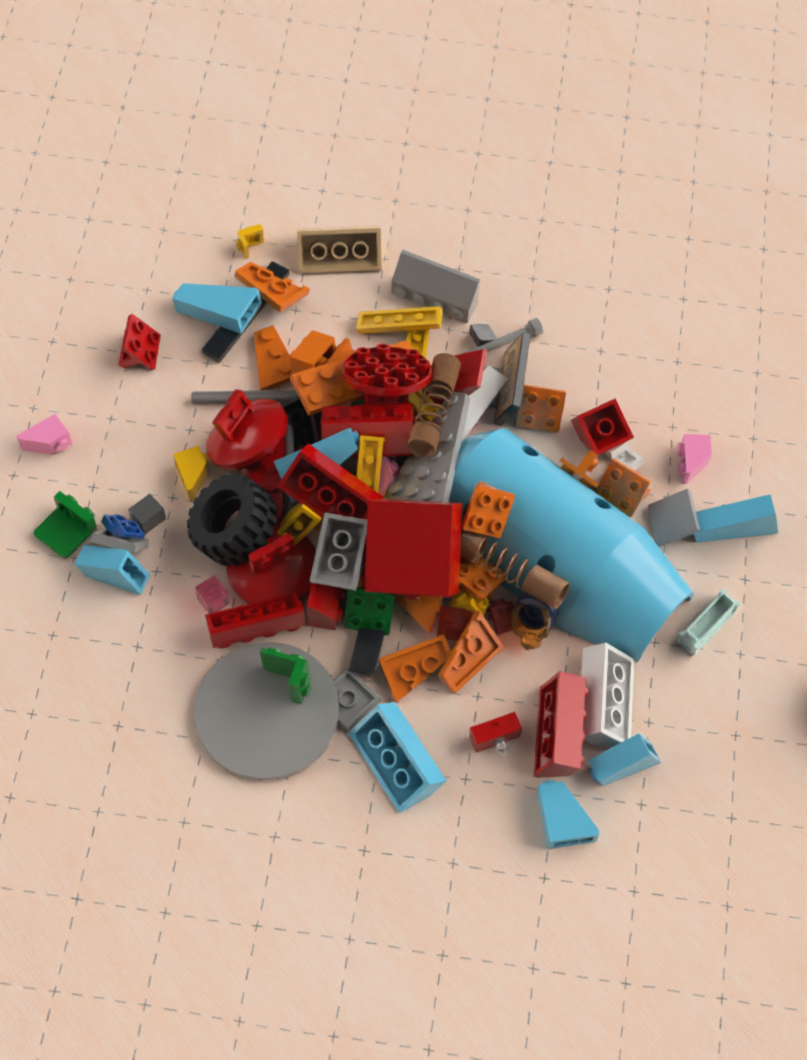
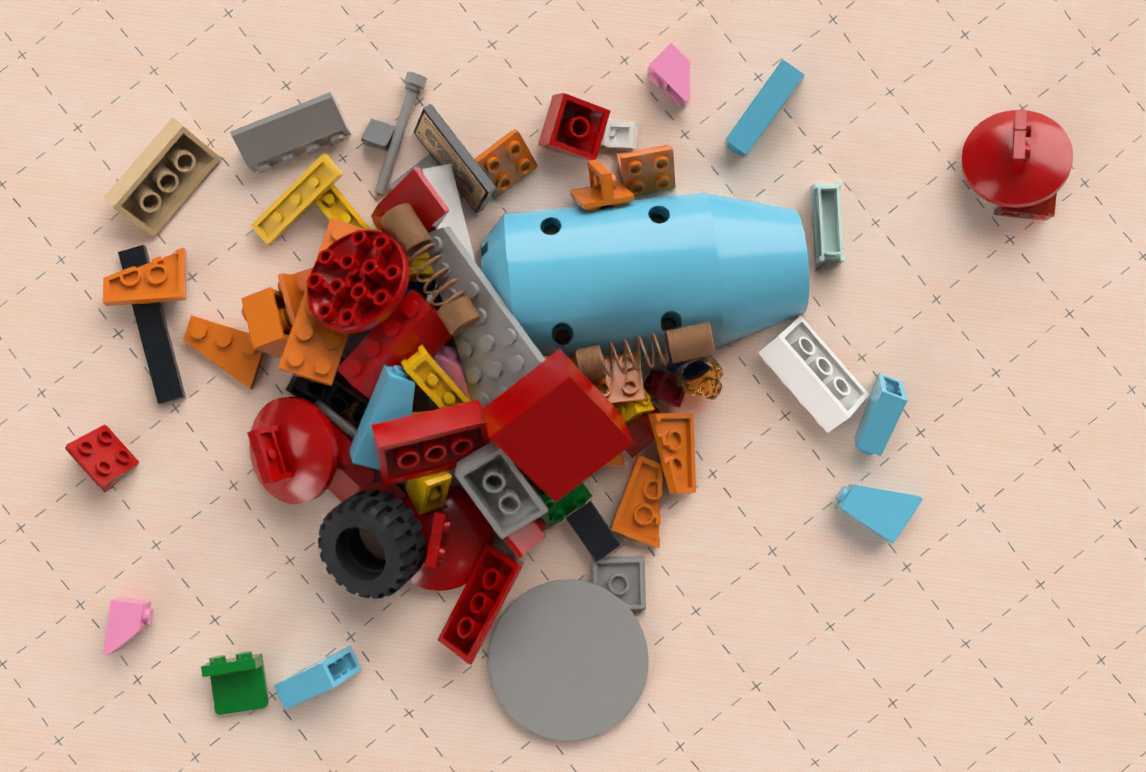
camera: 45 degrees left, 25 degrees up
(108, 539) = (298, 651): light grey tile -> none
(121, 527) = (286, 639): blue slope -> none
(147, 513) = (289, 602): dark grey brick -> none
(192, 469) = (280, 524): yellow slope -> none
(212, 595) = (422, 615): clear pink brick -> none
(218, 305) = (125, 348): medium azure slope -> none
(221, 397) = (241, 412): light grey axle -> none
(249, 237) = (70, 250): yellow bracket -> none
(291, 666) = (579, 621): green bracket -> none
(397, 756) = (707, 592): medium azure slope -> none
(488, 510) = (580, 328): orange bracket -> none
(496, 734) = (763, 494): red piece -> none
(560, 726) = (808, 440): slope -> none
(673, 517) = (715, 155): light grey tile -> none

